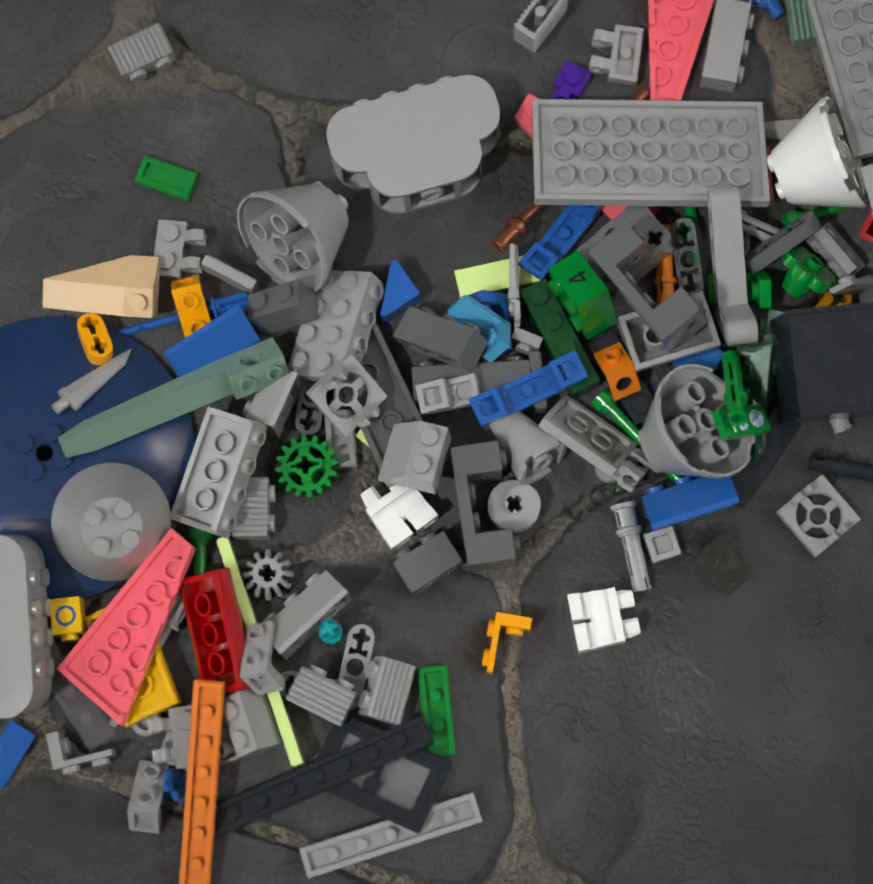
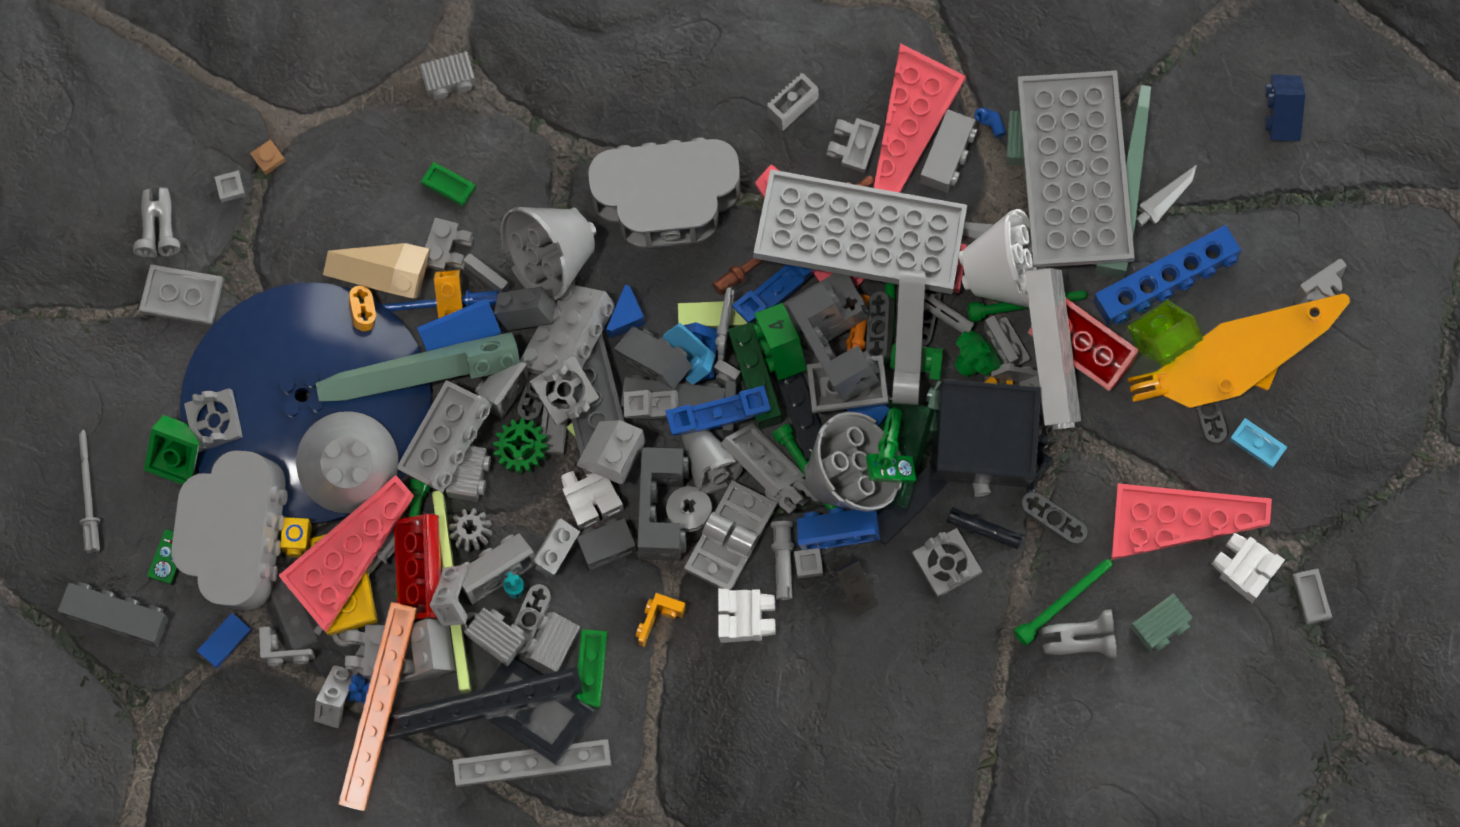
camera: 10 degrees right, 5 degrees down
(82, 389) = (344, 347): light grey bar -> none
(371, 579) = (555, 547): none -> light grey bracket
(567, 529) = (730, 536): none -> light grey plate
(571, 81) = (809, 160): dark purple plate -> none
(615, 366) = (796, 405): orange bracket -> none
(782, 242) = (958, 326): dark grey beam -> none

